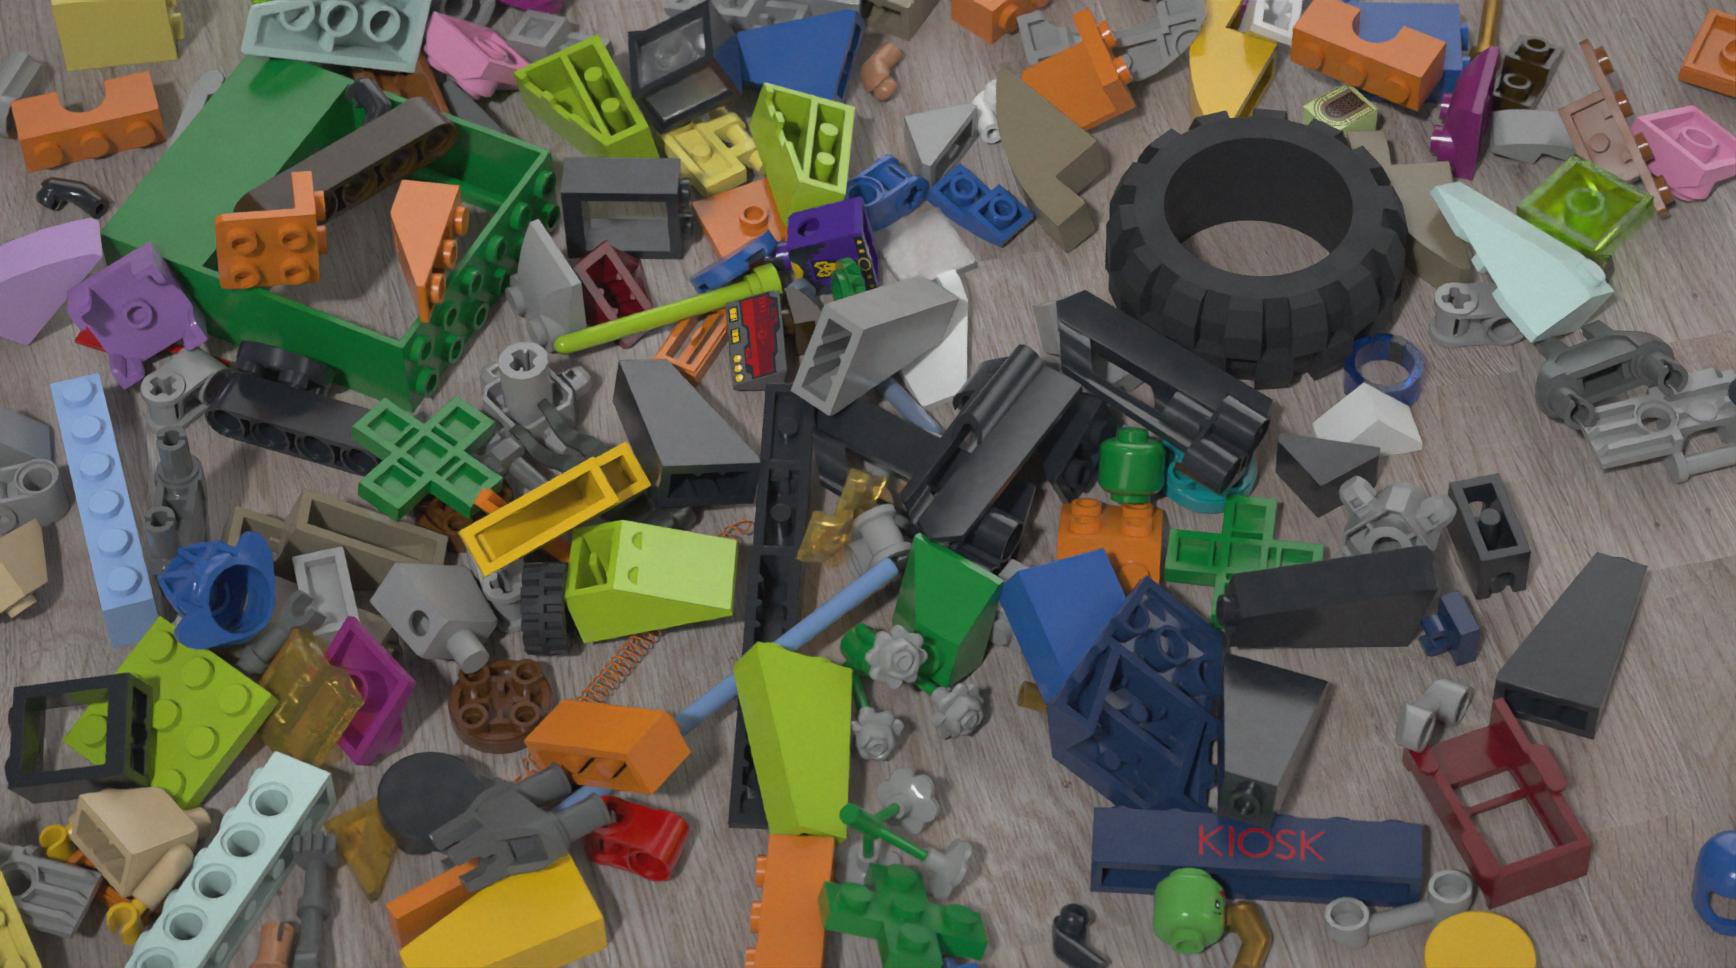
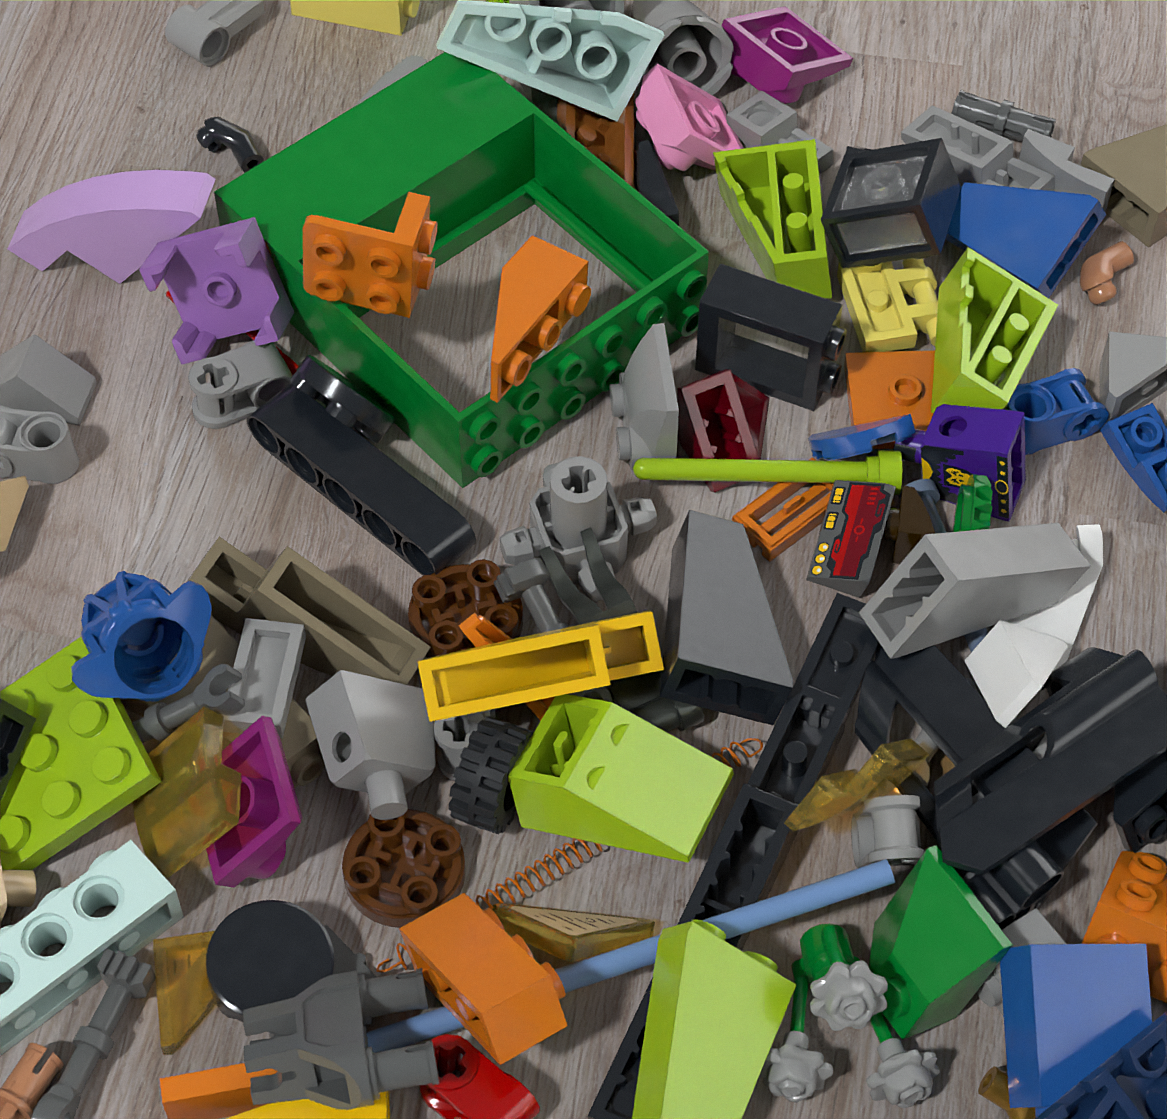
camera: 20 degrees right, 5 degrees up
(59, 137) = (315, 81): orange arch -> none
(105, 509) = (83, 533): light blue arch -> none
(179, 504) = (157, 525): dark grey connector -> none
(363, 160) = (504, 202): dark brown beam -> none
(370, 97) = (549, 144): black arm -> none
(425, 457) = (438, 551): green plate -> none
(668, 698) = (572, 933): none -> clear yellow tile
(923, 246) = (1076, 487): clear piece -> none
(926, 393) = (1013, 667): none -> white slope

